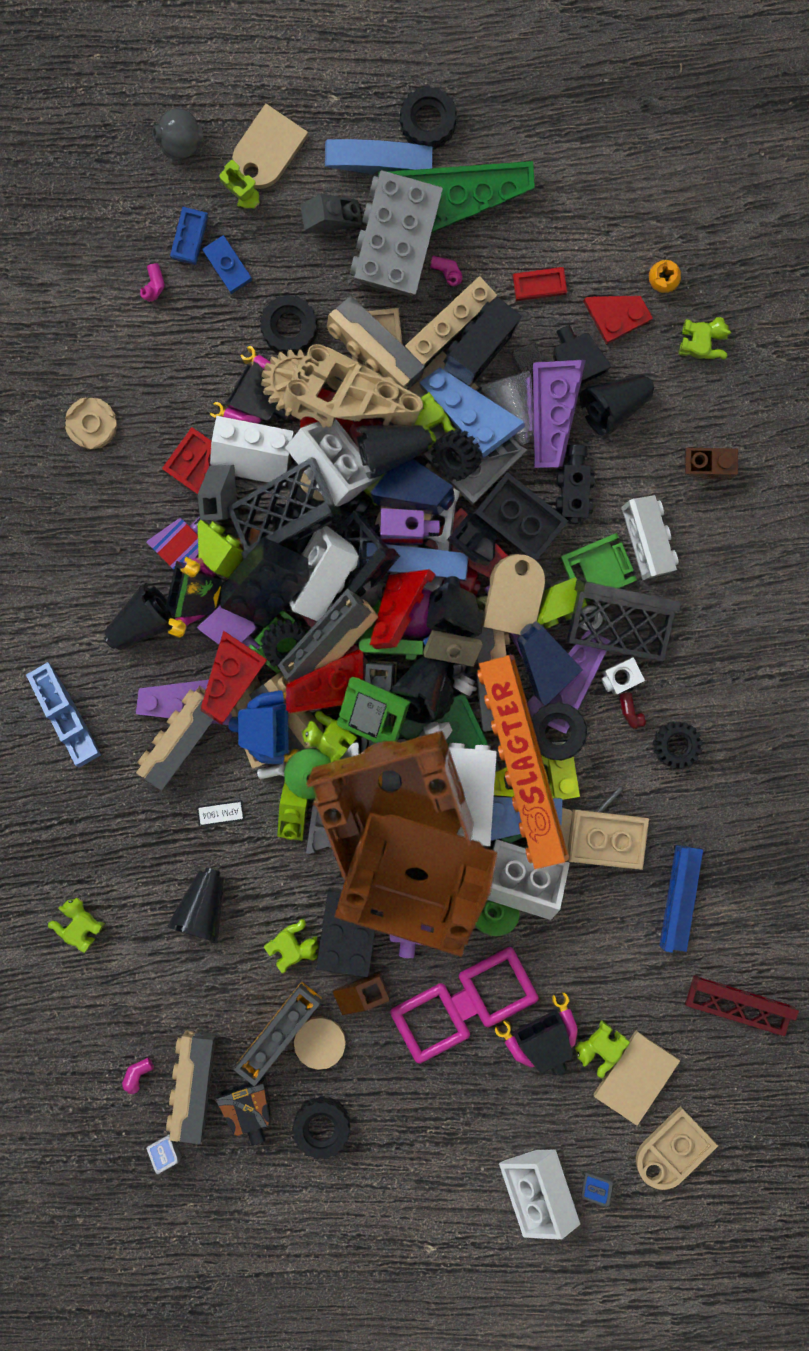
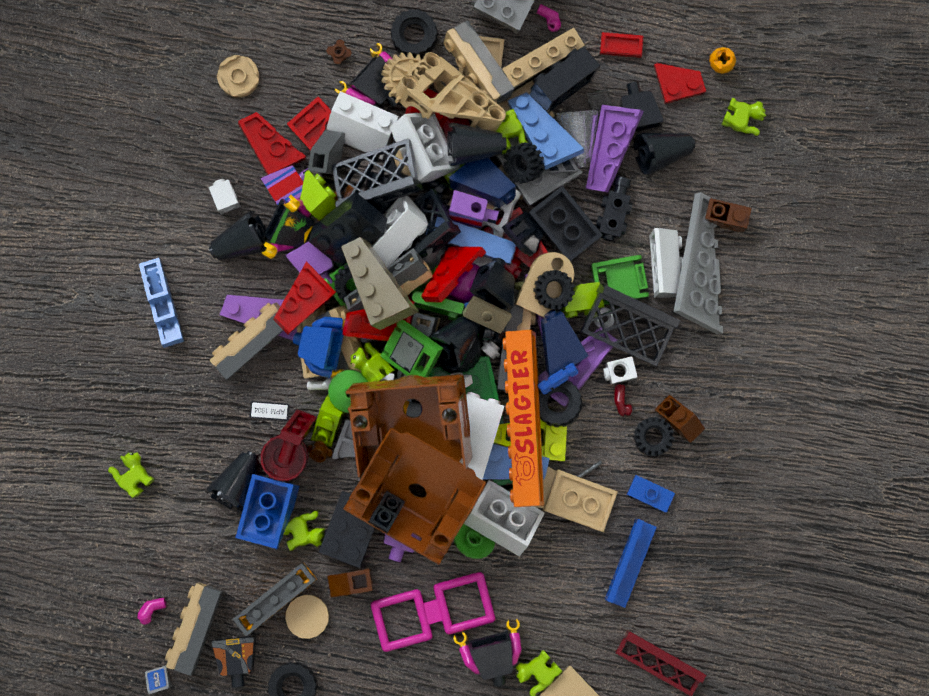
camera: 10 degrees right, 5 degrees down
(108, 572) = (224, 196): none -> white brick
(147, 499) = (268, 145): none -> red wing
(204, 375) = (339, 58): none -> reddish brown plate
(244, 933) = (266, 511): none -> blue slope
(247, 881) = (280, 471): none -> dark red wheel
(257, 838) = (294, 434): none -> dark red piece
(290, 850) = (319, 451): none -> reddish brown plate
(315, 647) = (377, 287): none -> dark tan wedge
(386, 908) = (386, 512): none -> black slope
(540, 604) = (563, 280): none -> black tyre
(553, 704) = (558, 378): none -> blue axle
(687, 812) = (650, 493): none -> blue plate
(691, 537) = (700, 271): none -> light grey wing
(704, 717) = (680, 418): none -> reddish brown slope

